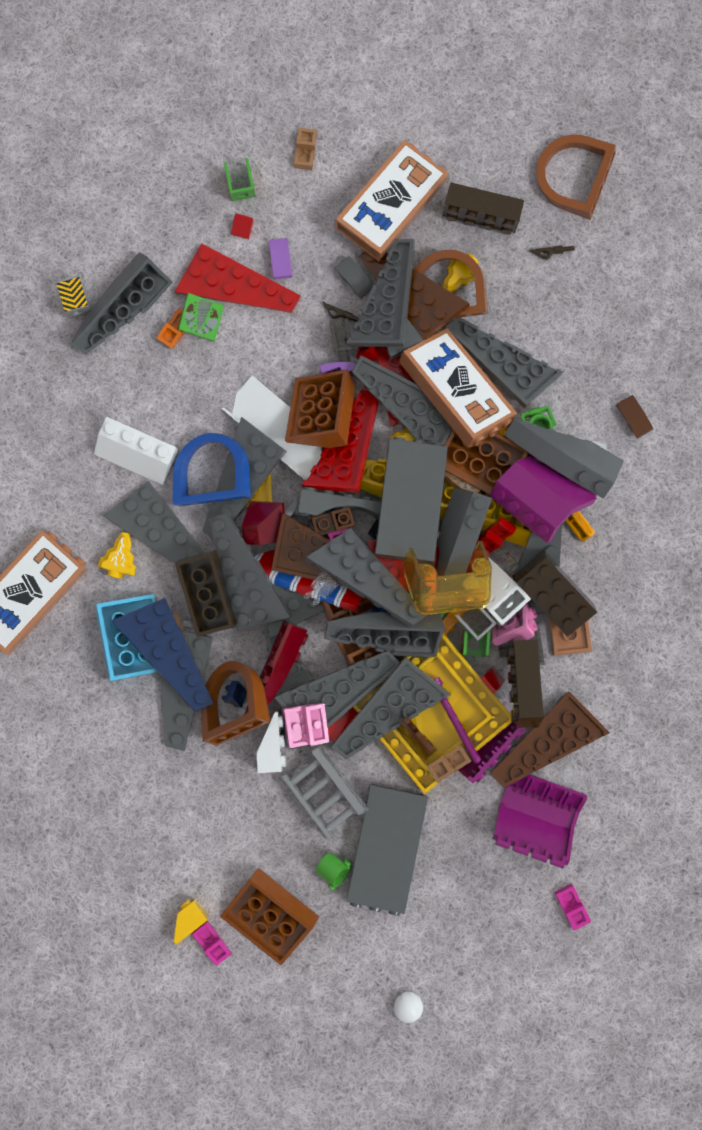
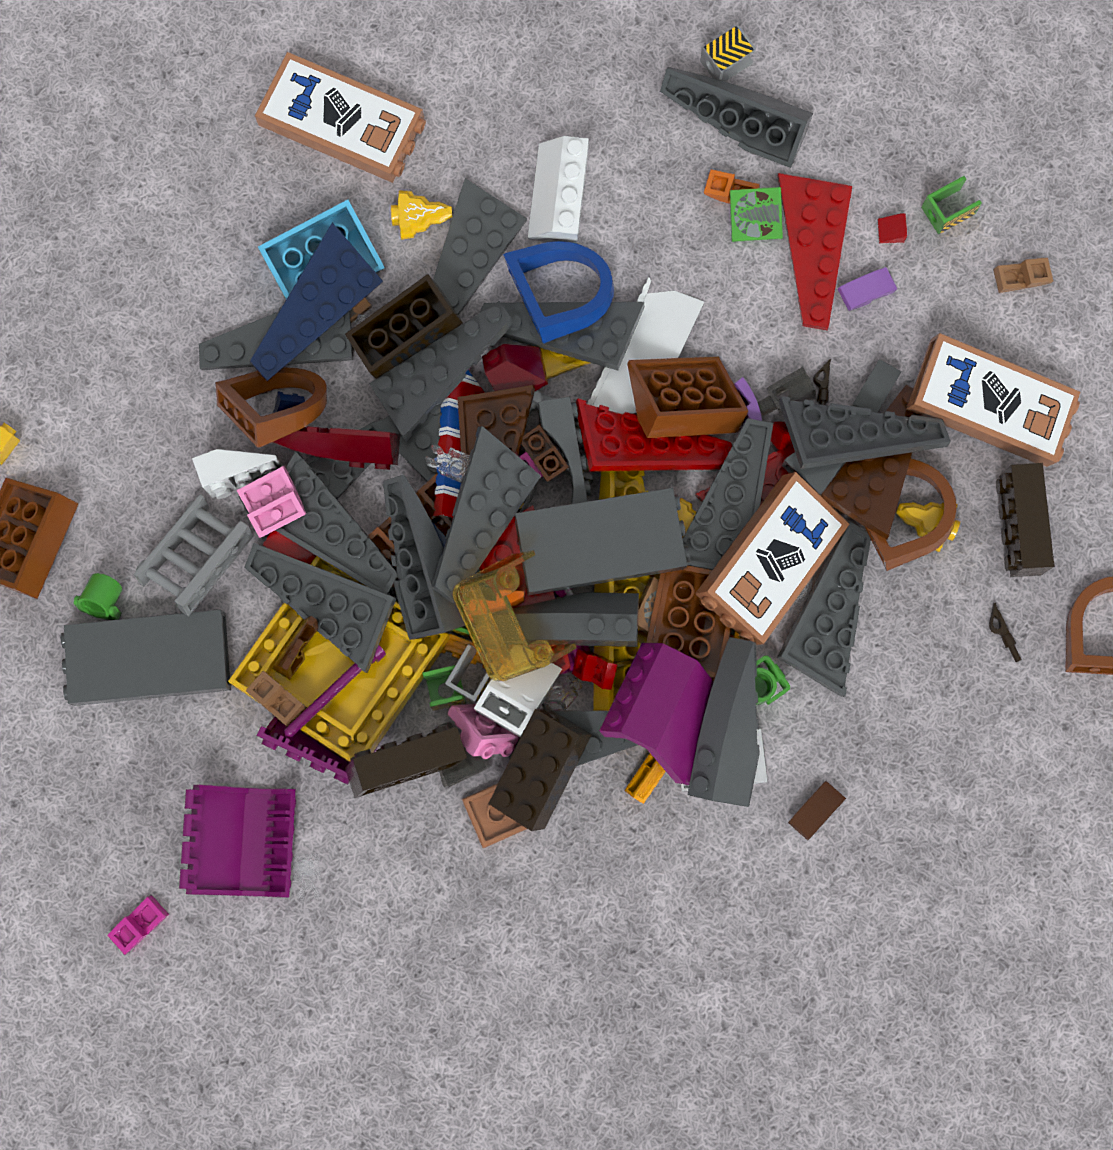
camera: 80 degrees right, 5 degrees down
(493, 679) = (402, 723): red slope -> none
(561, 732) = (355, 832): reddish brown wing -> none

